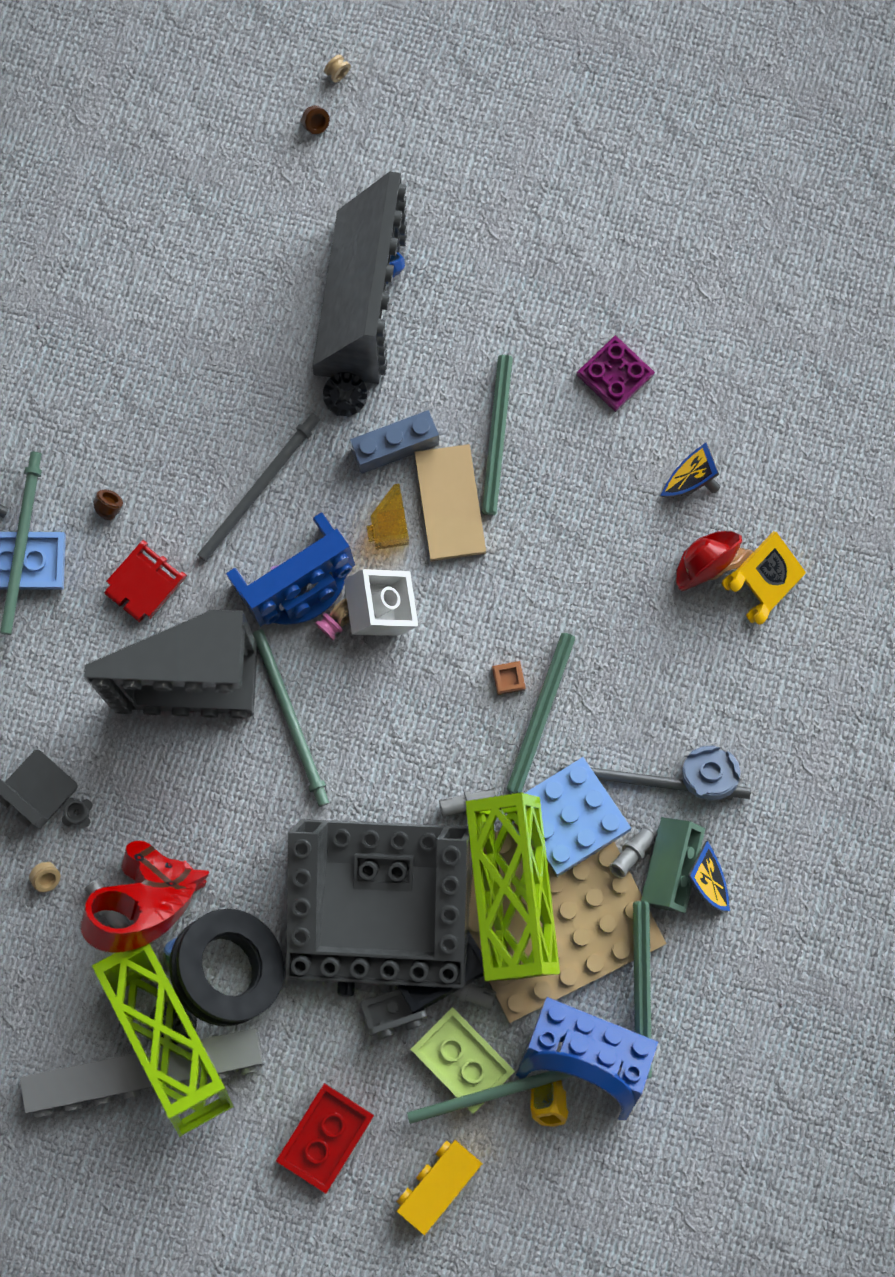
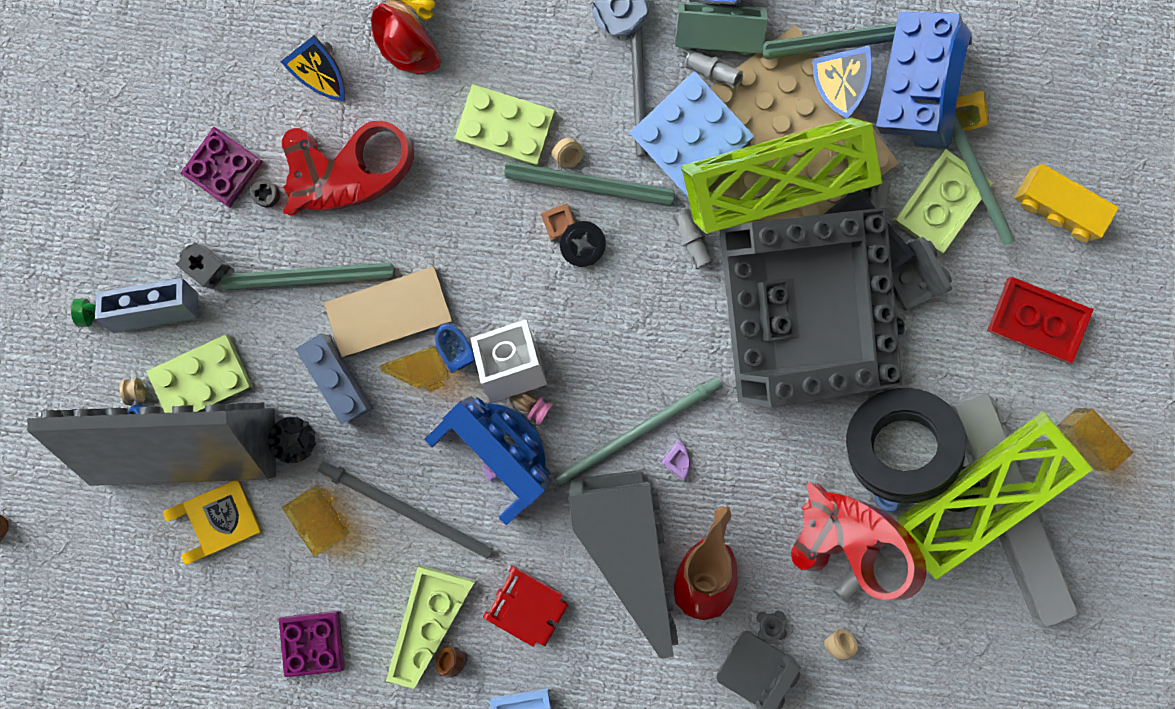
camera: 95 degrees left, 10 degrees up
(140, 758) = (707, 573): none -> hat
(151, 381) = (311, 644): none -> magenta tile
(154, 490) = (428, 615): none -> yellowish green wing
(194, 1168) = (1094, 439): none -> clear yellow brick
(255, 751) = (677, 460): none -> lavender tile
(265, 404) = (316, 519): none -> clear yellow brick
(284, 318) = (218, 519): none -> yellow flag
(404, 555) = (454, 347): none -> rock
(417, 260) = (132, 391): none -> tan bush
(419, 322) = (200, 376): none -> yellowish green plate
(471, 699) = (586, 256): none -> black gear
(494, 286) = (146, 305): none -> sand blue brick
(498, 230) = (82, 312): none -> green tile
(523, 350) = (213, 265): none -> dark grey brick
(574, 696) = (567, 153): none -> tan tile
(581, 472) = (339, 183): none -> red animal
(590, 404) = (258, 187): none -> black bush
(600, 975) = (844, 78): none -> shield
(612, 642) = (504, 125): none -> yellowish green plate

